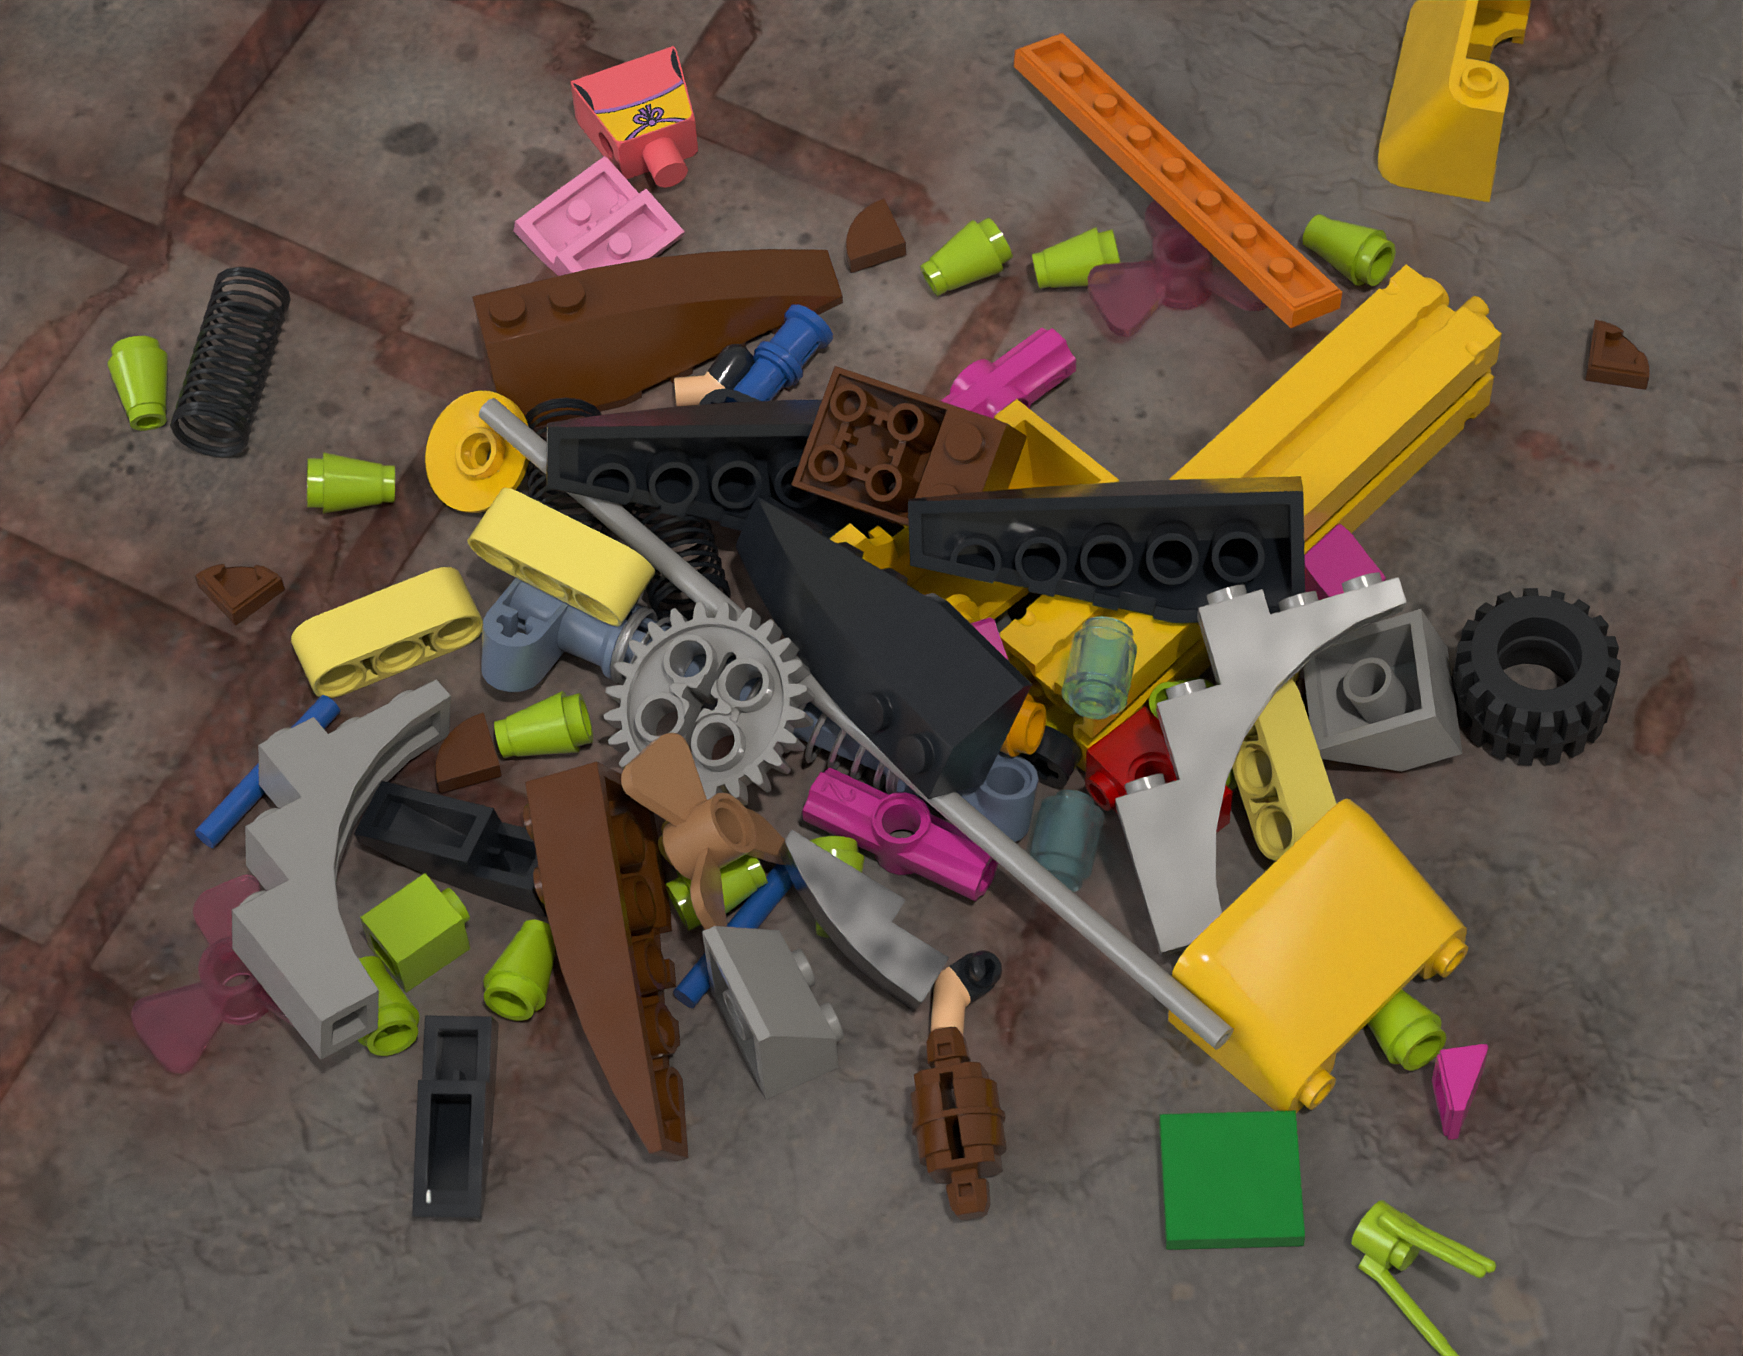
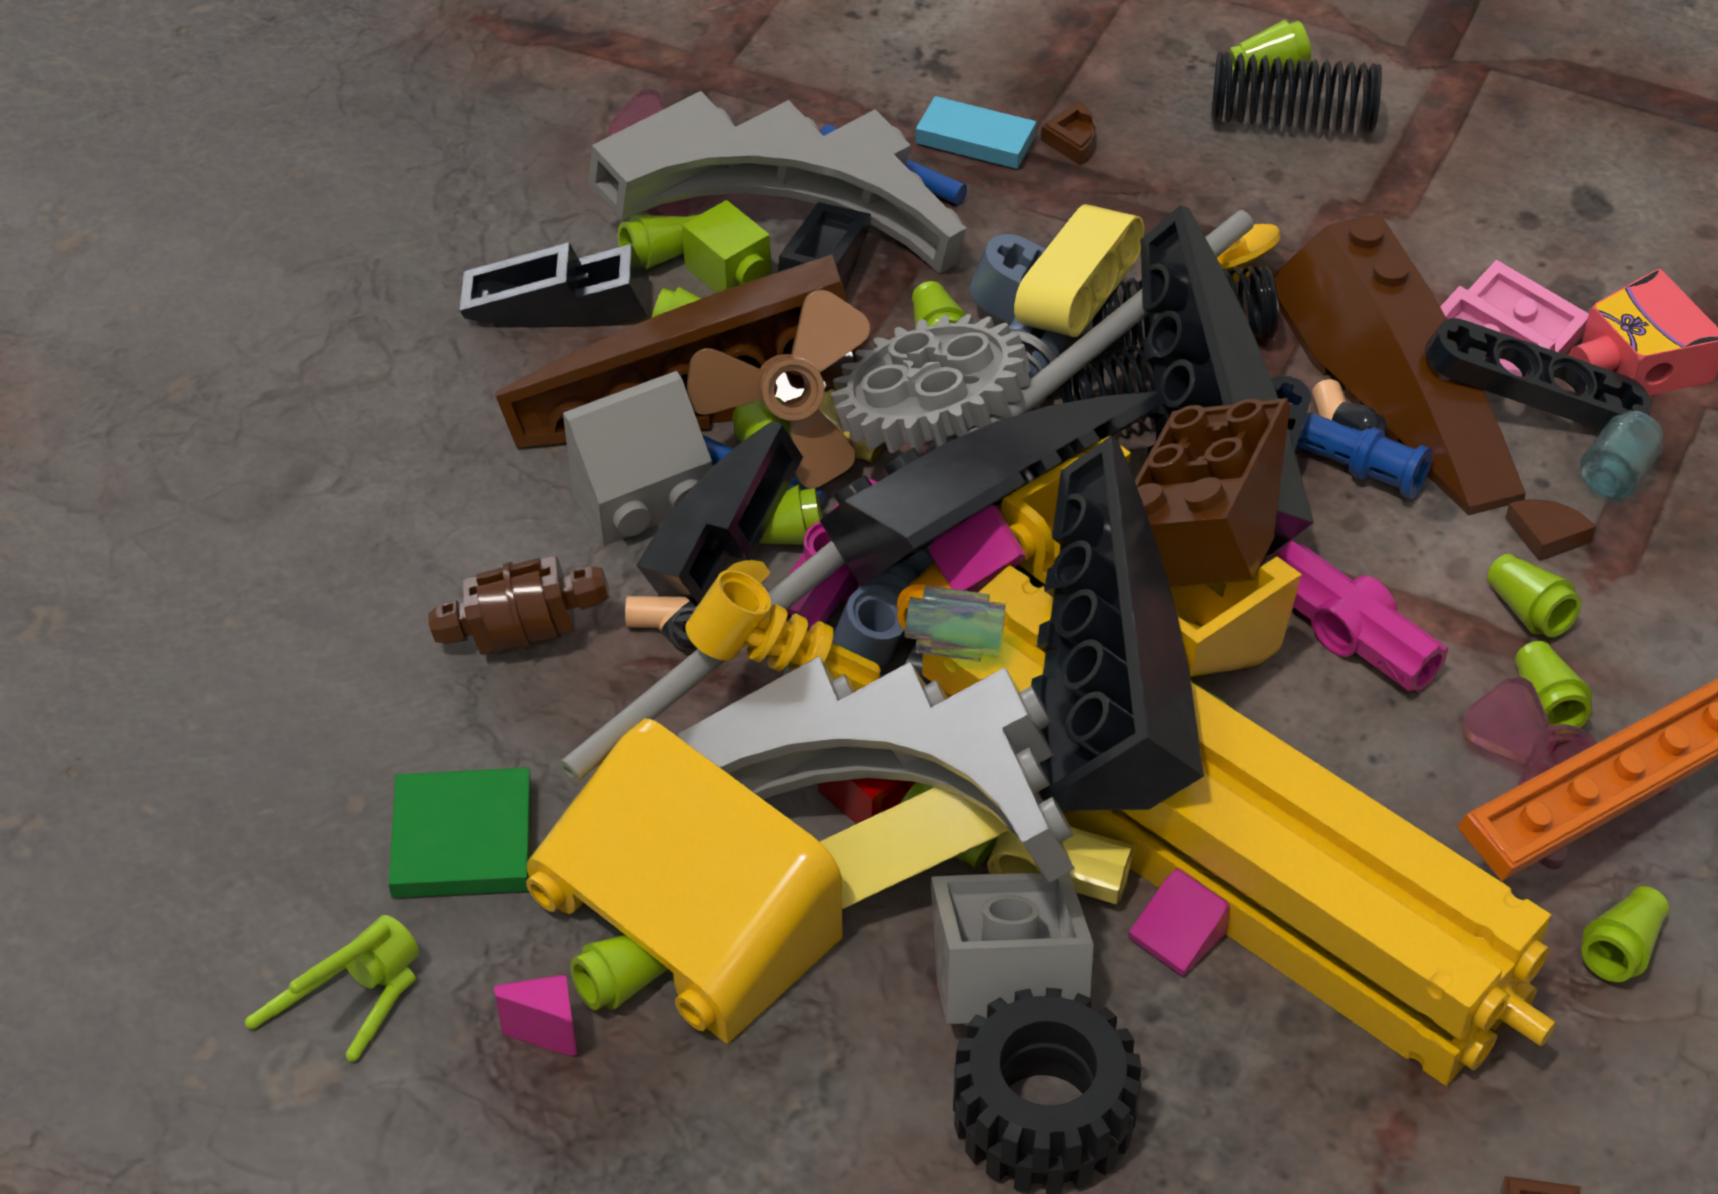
camera: 85 degrees right, 10 degrees down
(225, 683) = (976, 132): none -> medium azure tile
(348, 483) = (1183, 174): lime cone -> none
(387, 632) = (1018, 197): light yellow beam -> none
(467, 756) = (906, 272): reddish brown tile -> none
(706, 204) = (1473, 357): none -> black beam
(797, 161) = (1622, 454): none -> clear light blue brick
(1070, 856) = (740, 614): none -> yellow piece

